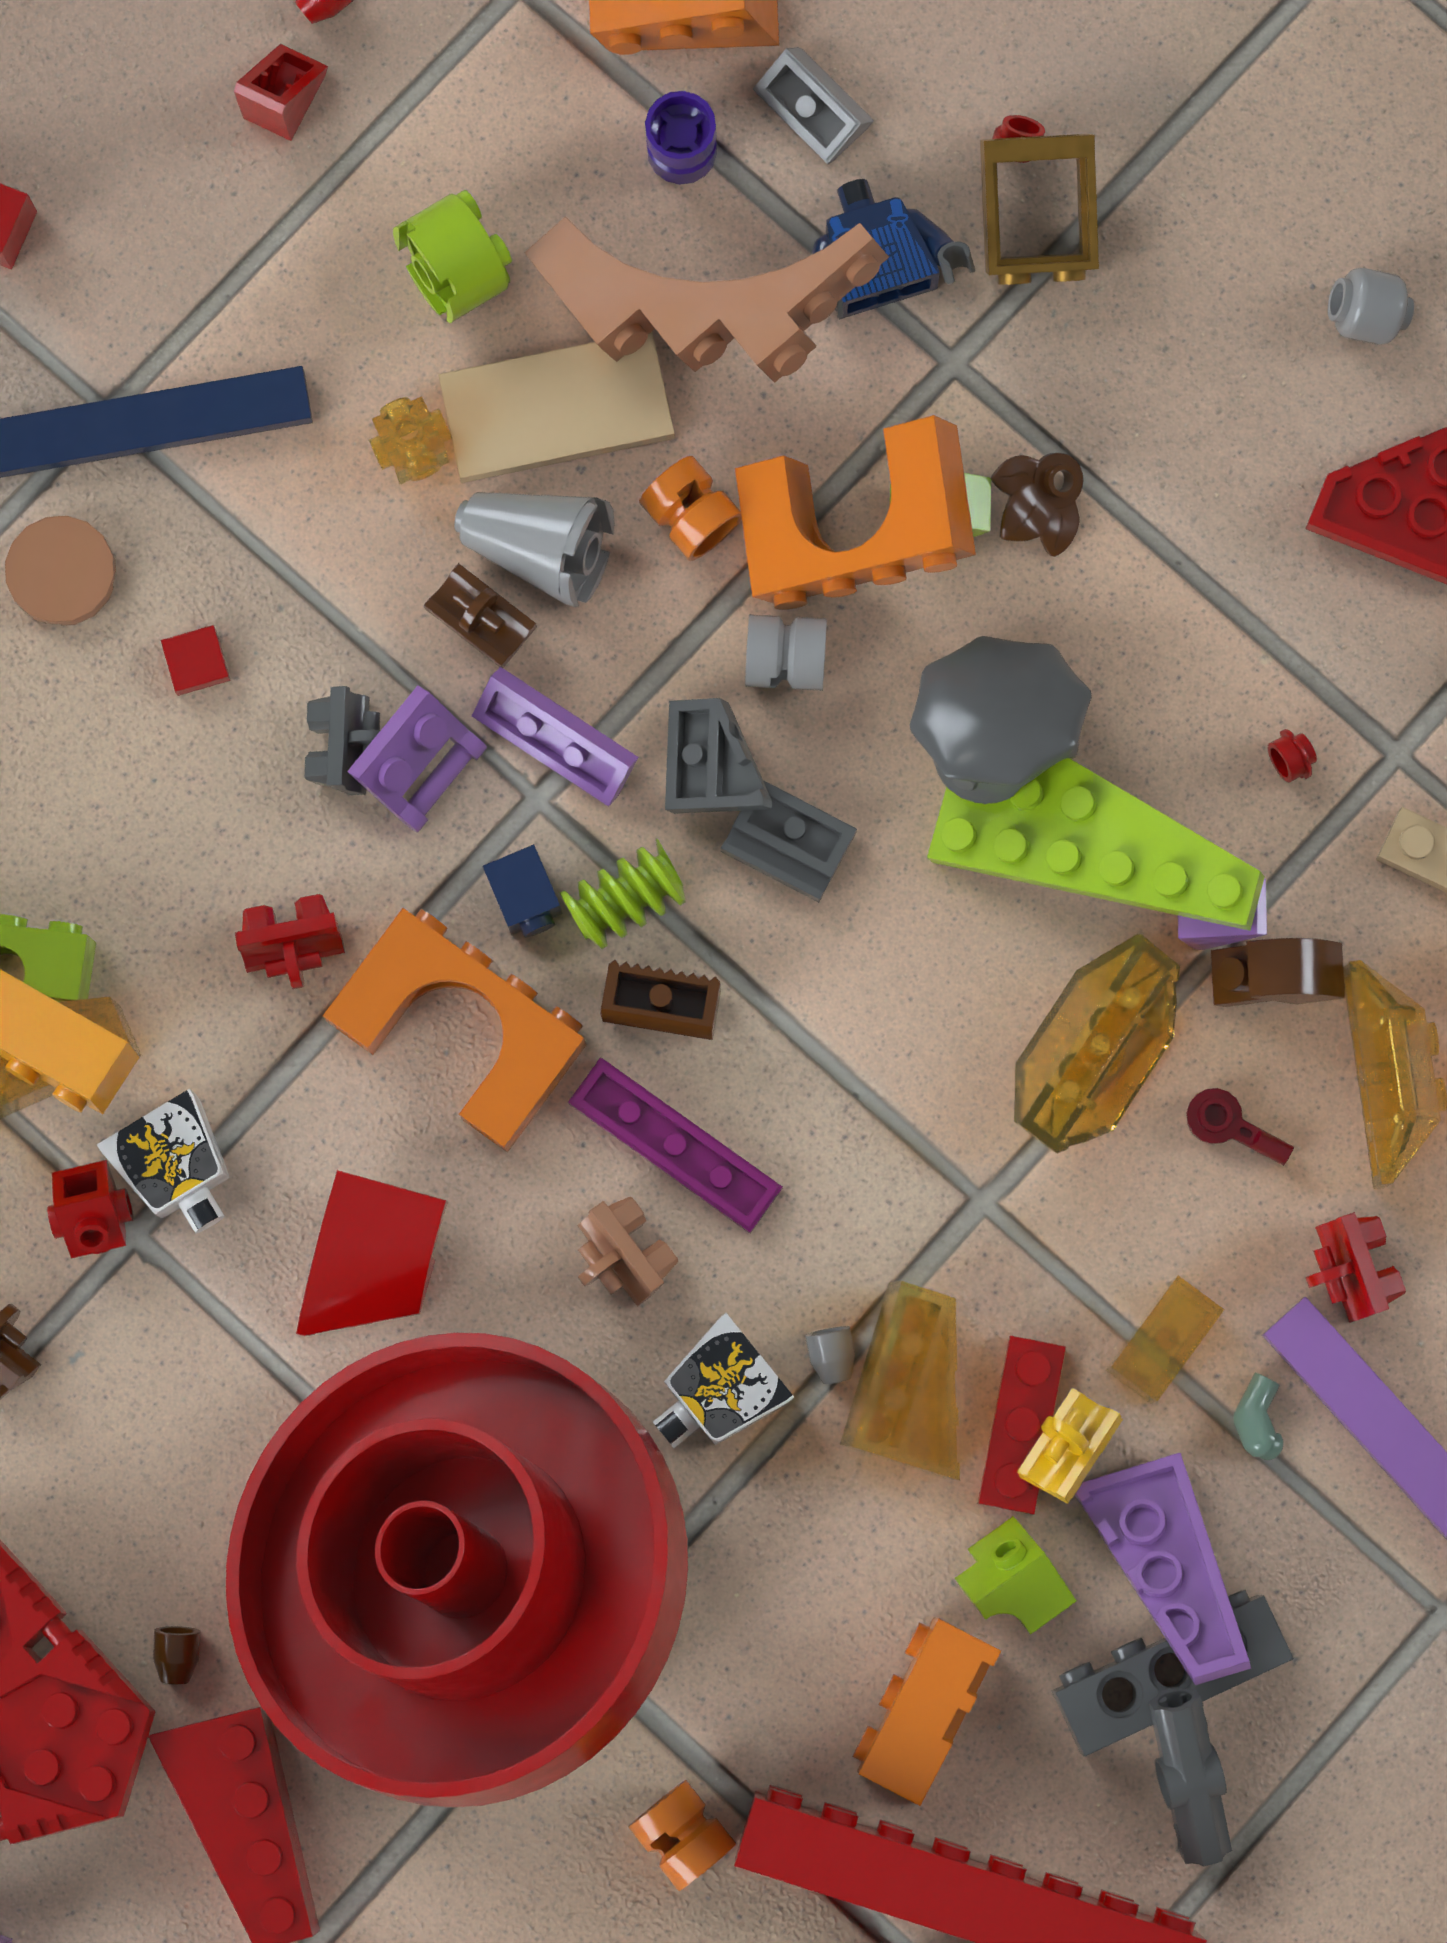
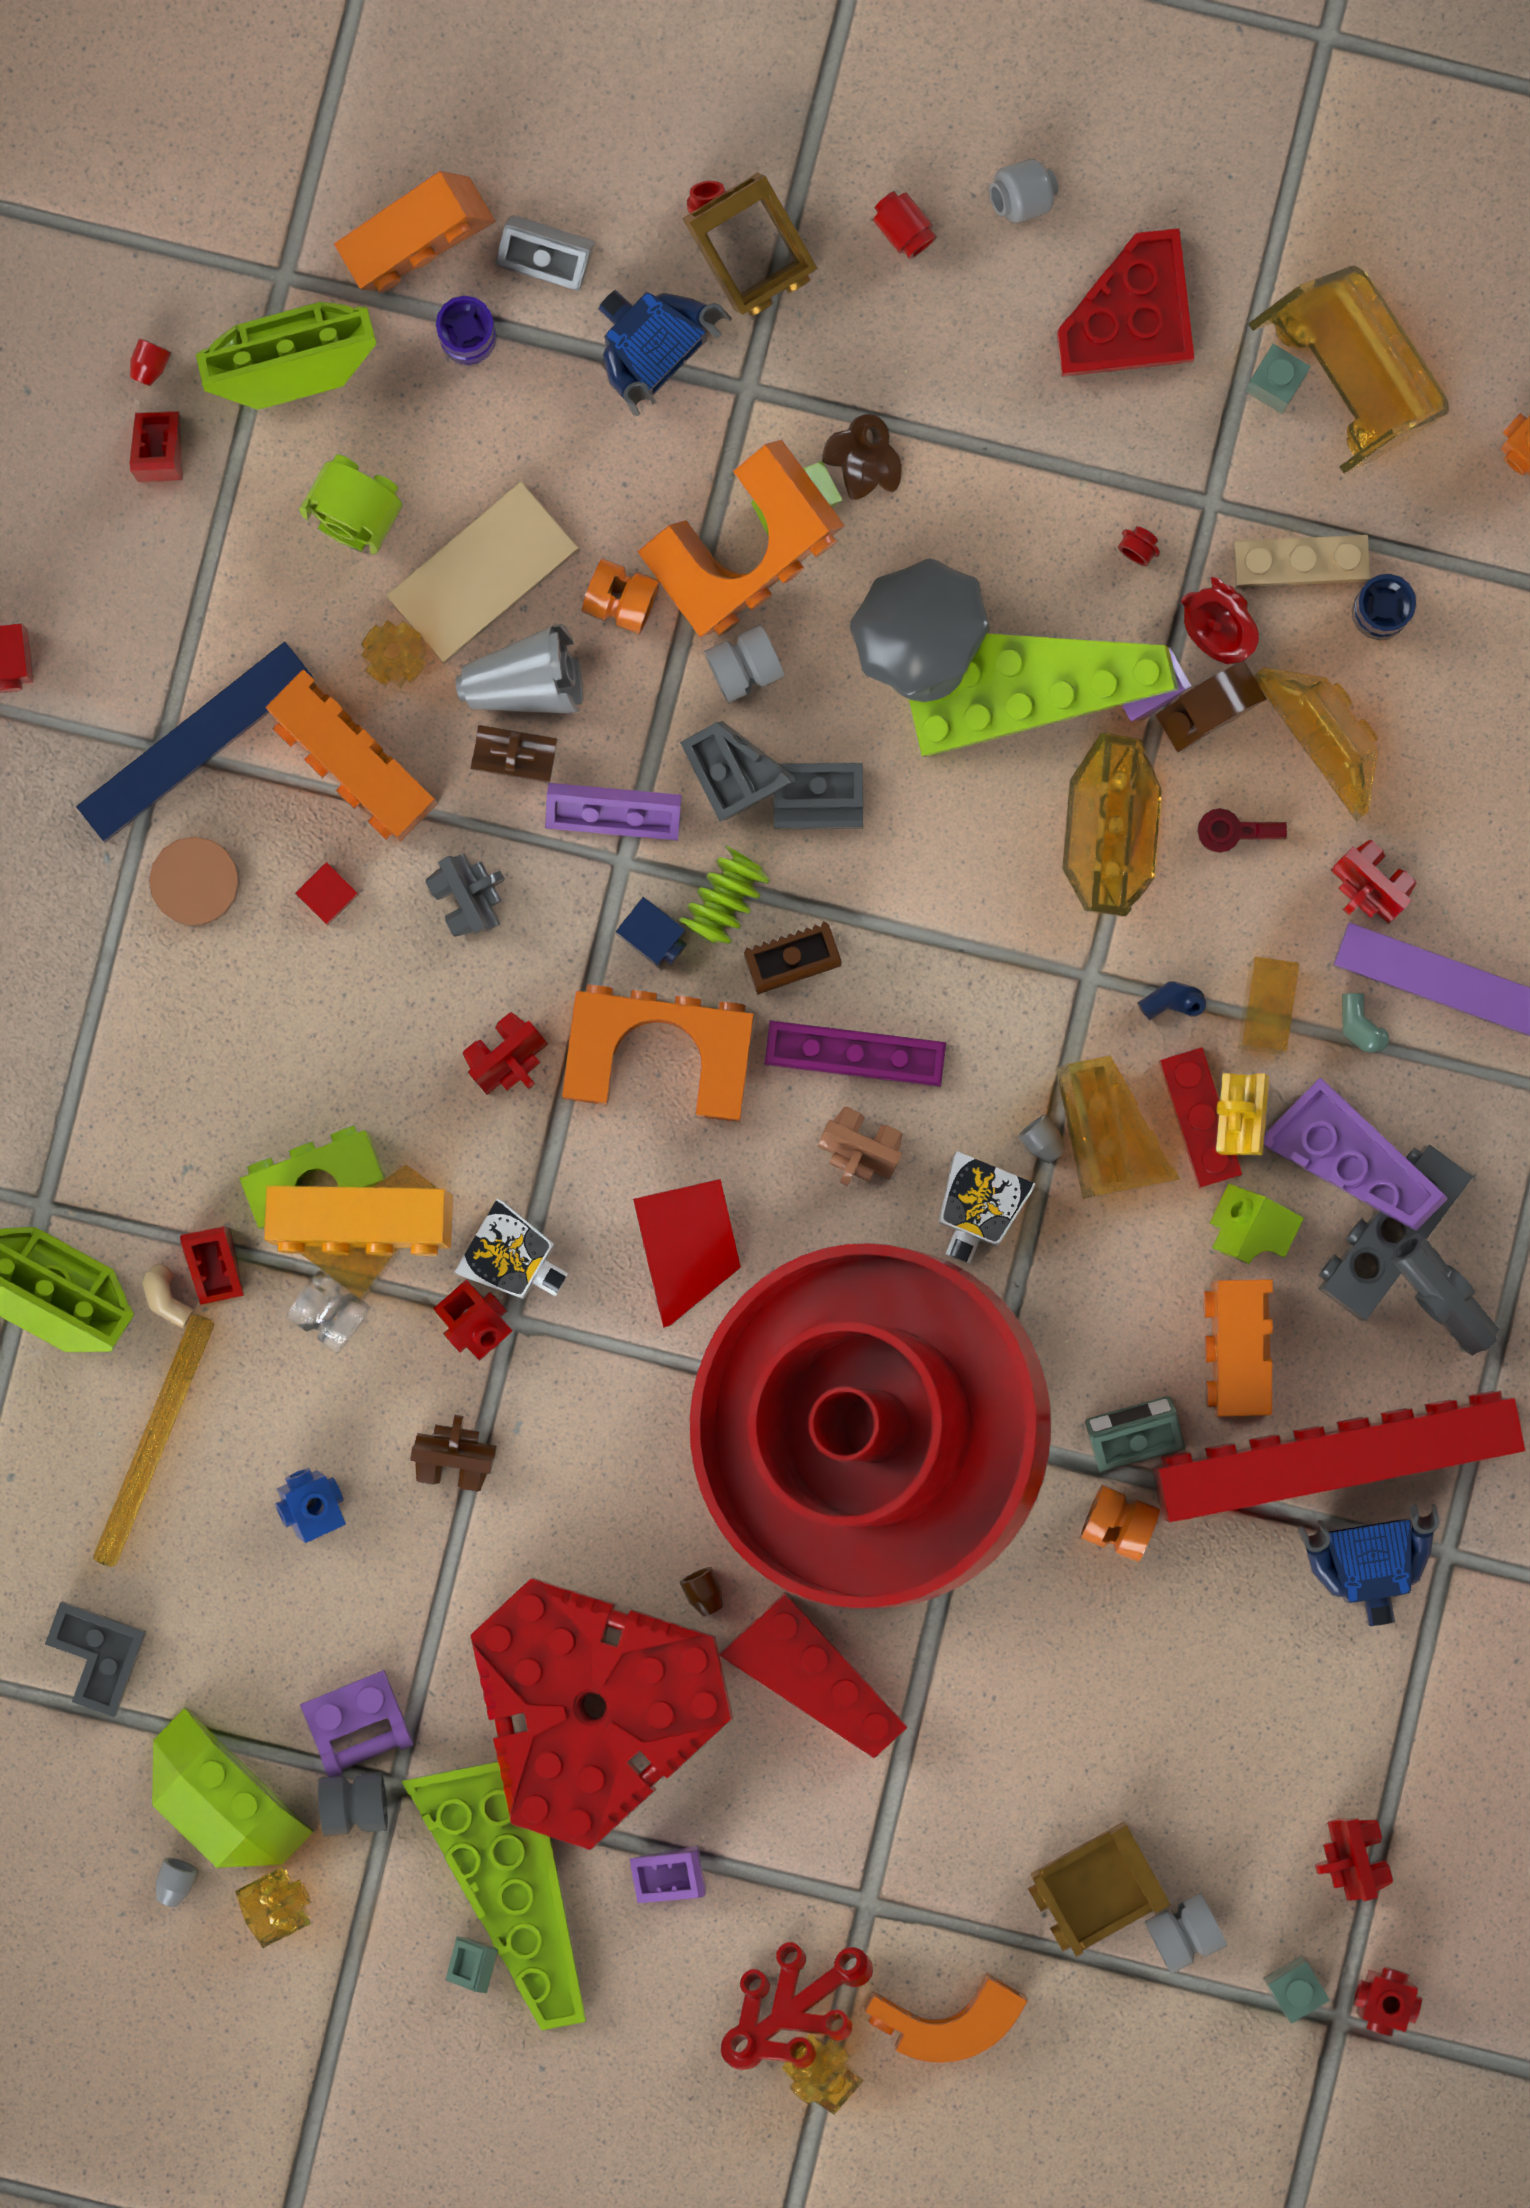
camera: 30 degrees left, 5 degrees up
(300, 521) = (350, 757): none -> orange wedge
(405, 750) = (515, 879): medium lavender plate -> none
(472, 64) = (287, 354): none -> lime wedge
(699, 319) = (554, 461): nougat arch -> none
(756, 1742) = (1135, 1433): none -> sand green slope
(1065, 1274) = (1173, 996): none -> dark blue arm
(1219, 274) = (904, 224): none -> red brick
(1337, 887) = (1220, 623): none -> red hat

